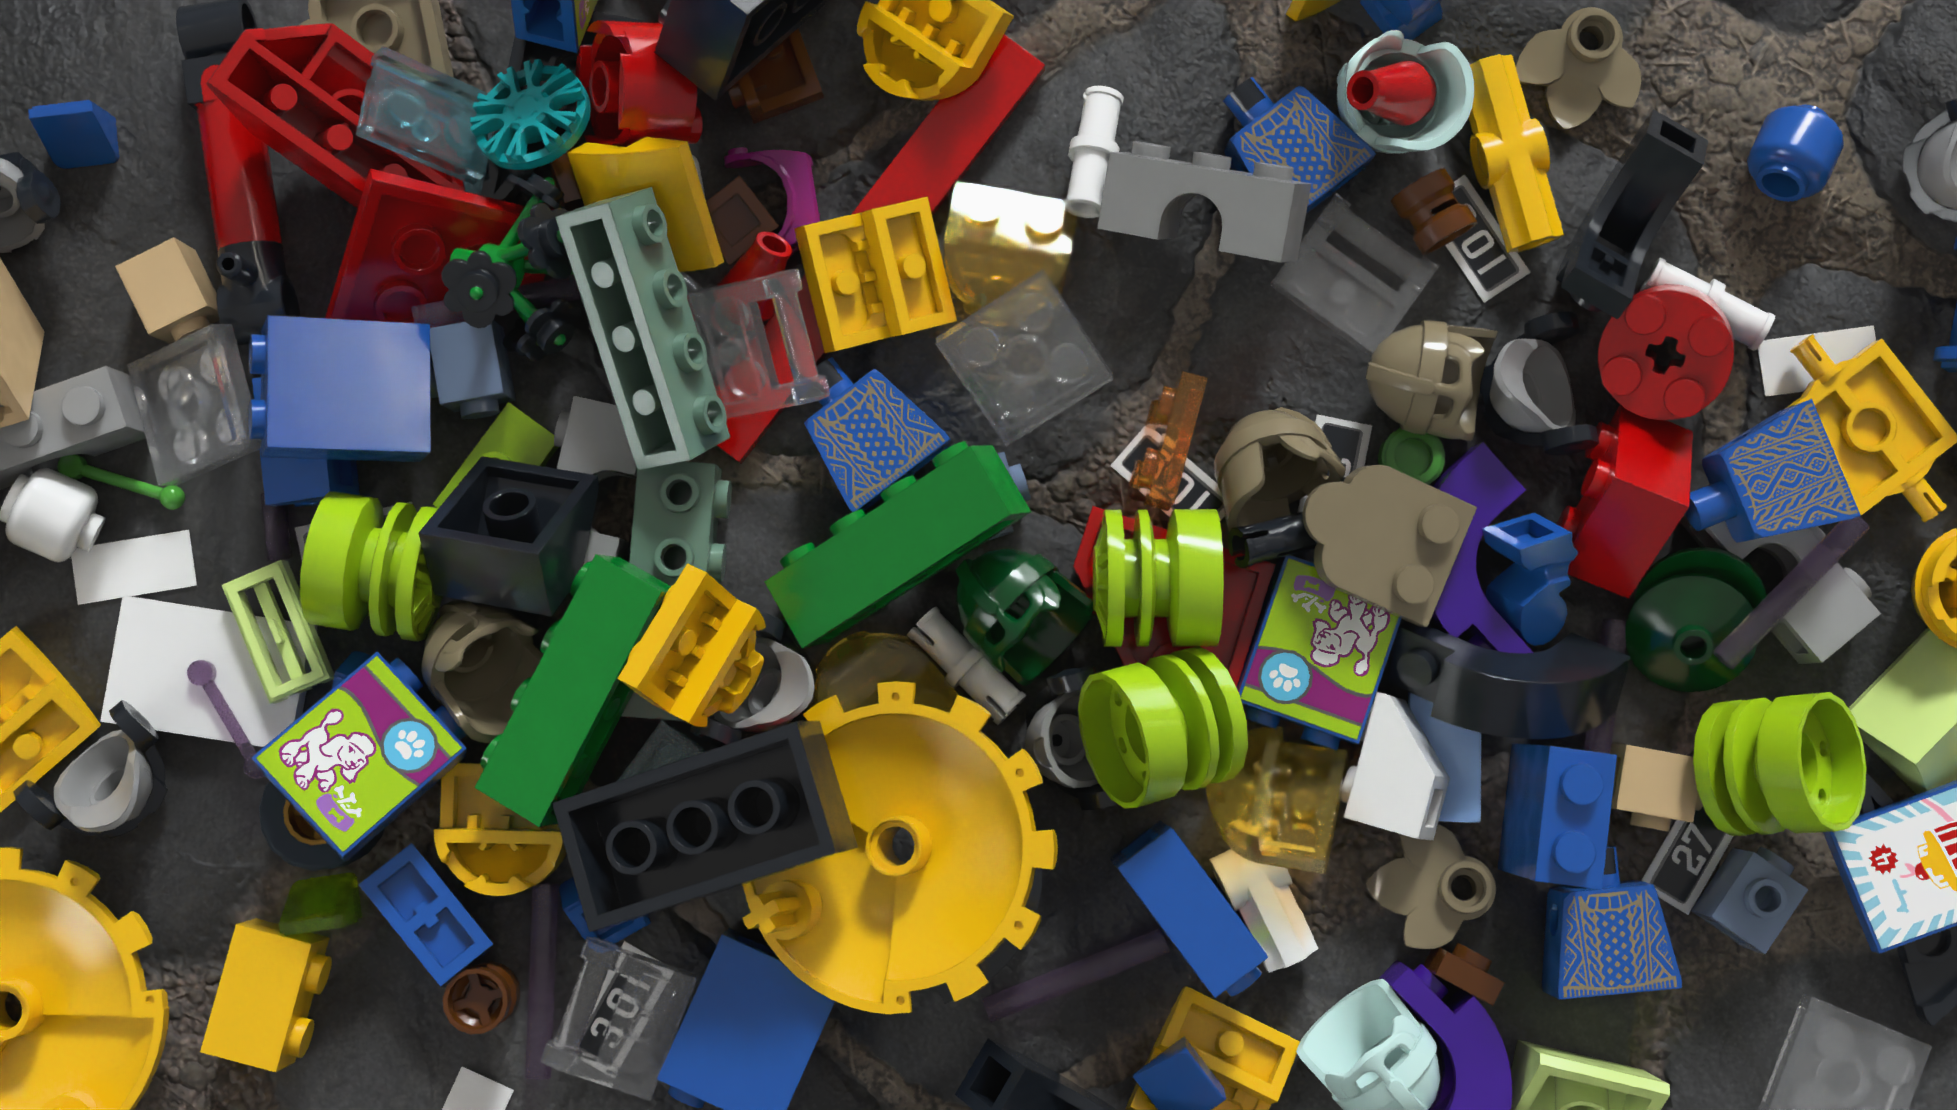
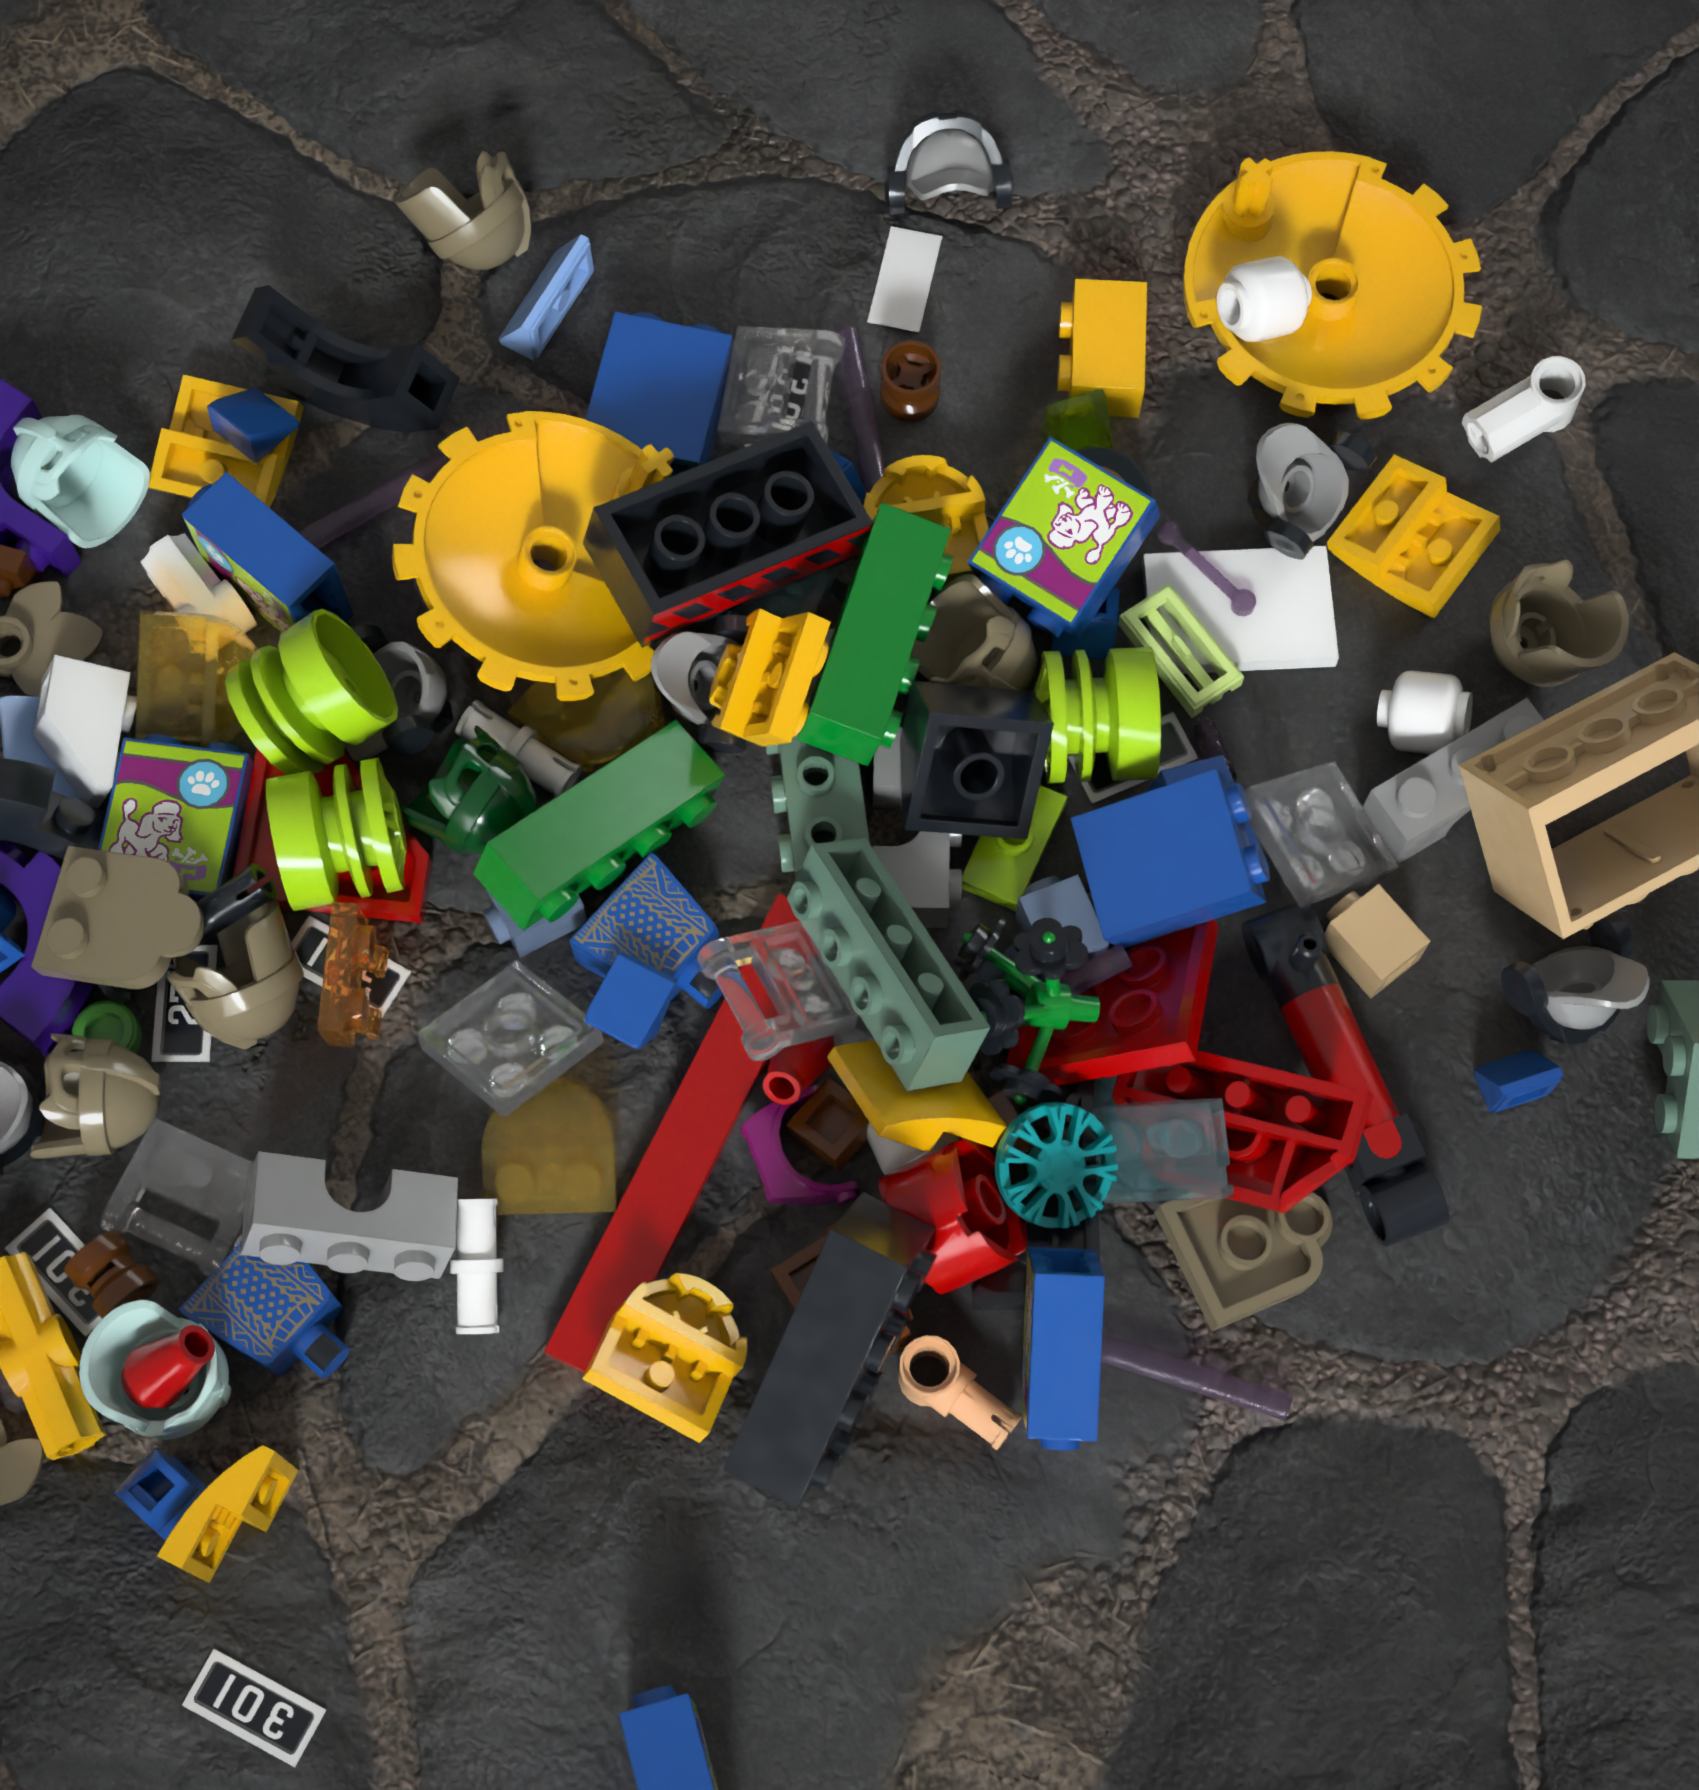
camera: 170 degrees right, 15 degrees down
(76, 467) = (1323, 755): bright green hinge -> none
(76, 991) = (1264, 299): none -> white head
(134, 567) = (1337, 693): white sticker -> none
(426, 915) = (976, 432): blue hinge -> none
(875, 274) = (677, 1093): yellow slope -> none
(902, 359) = (631, 1001): none -> blue slope

